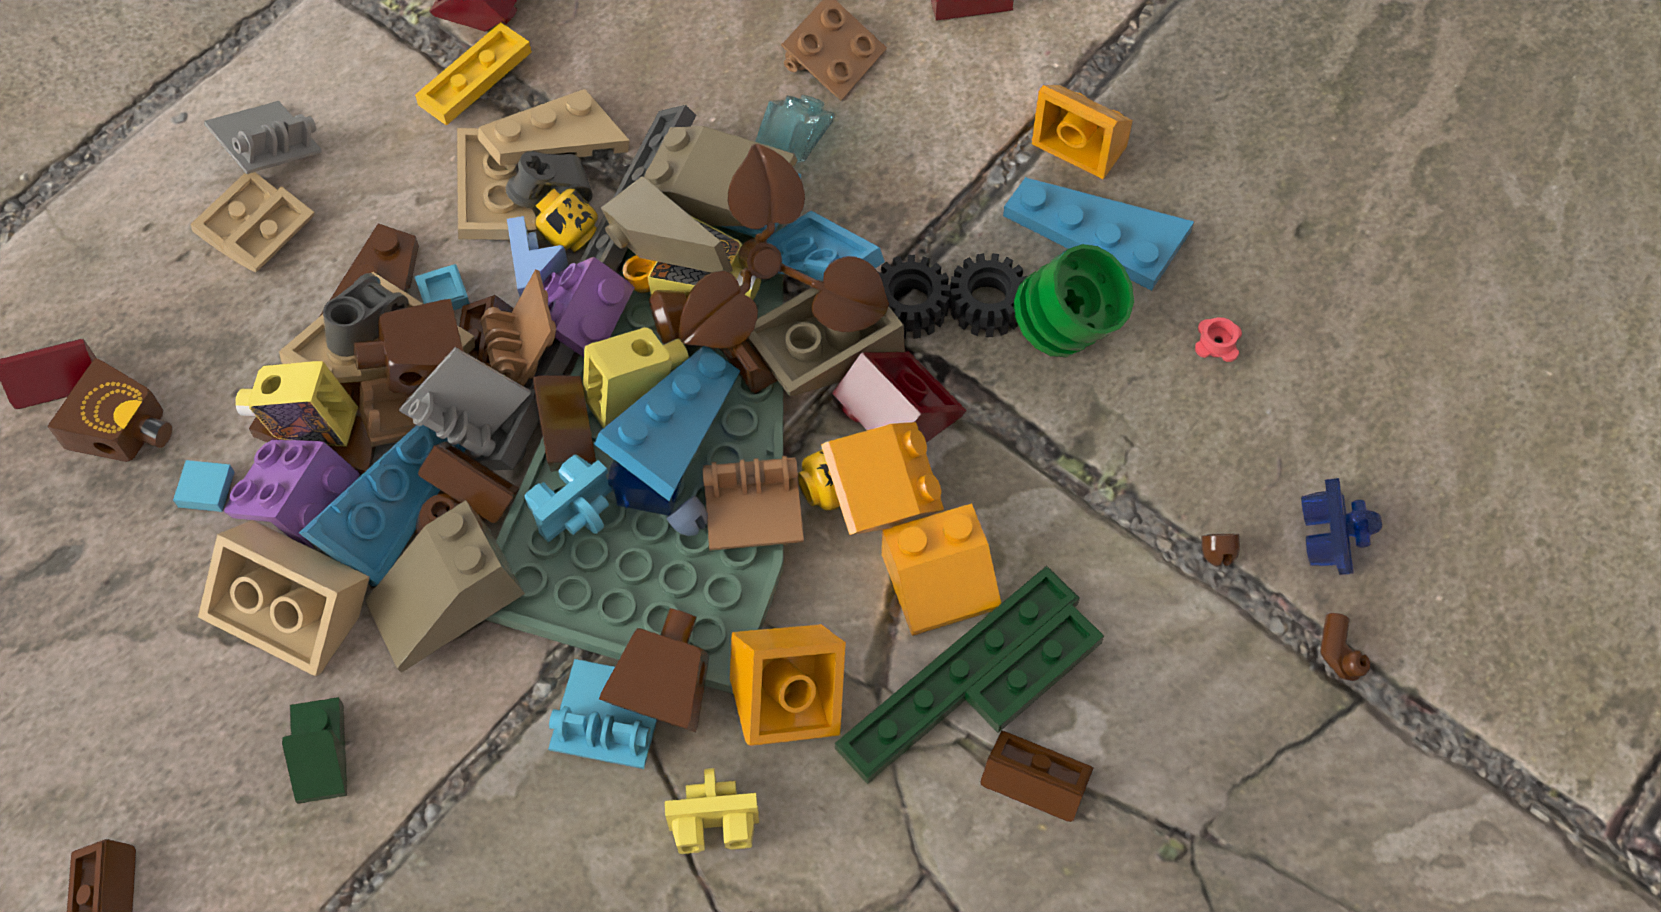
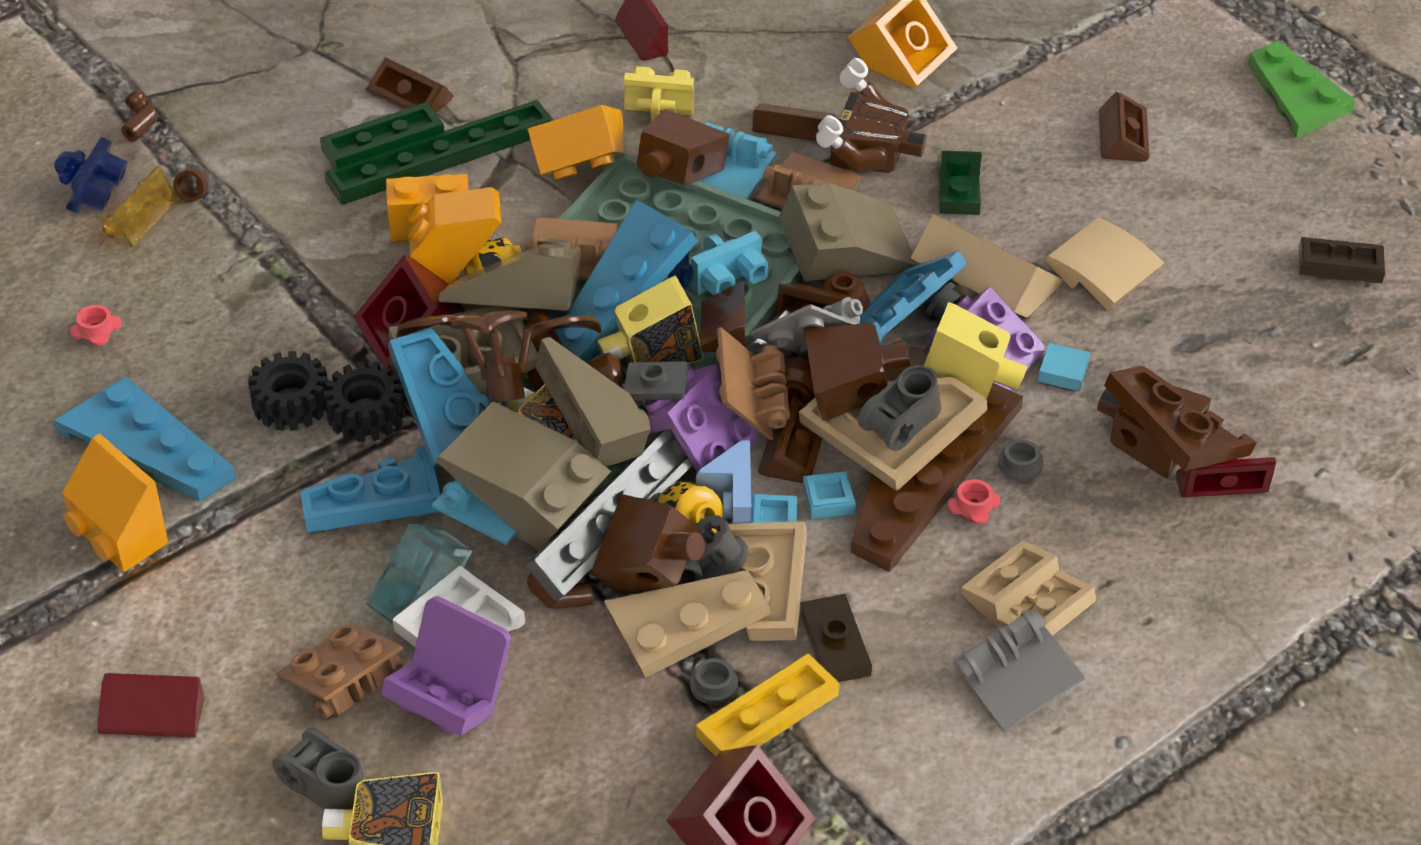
camera: 170 degrees left, 15 degrees down
(86, 367) = (1182, 431): none -> reddish brown wing
(145, 640) = (1104, 262): none -> tan slope
(252, 354) = (1020, 460): none -> dark grey plate
(299, 293) = (974, 501): none -> coral plate
(424, 151) = (835, 637): none -> dark brown plate
(430, 787) = (869, 129): none -> reddish brown torso
(491, 259) = (773, 508): none -> medium azure tile
(500, 698) = (799, 171): none -> medium nougat hinge
(522, 91) = (714, 682): none -> dark grey plate
(533, 816) = (787, 121): none -> reddish brown slope
(590, 156) = (646, 546): none -> reddish brown torso
(613, 293) = (656, 381): none -> dark grey bracket
(741, 35) = (452, 668): none -> medium lavender bracket
(745, 103) = (467, 592): none -> white wing
(793, 401) = (531, 279): none -> dark tan slope
(870, 196) = (385, 494): none -> dark azure wing
(1074, 301) = (220, 330): green wheel -> none
(1260, 482) = (141, 208): none -> clear yellow hinge

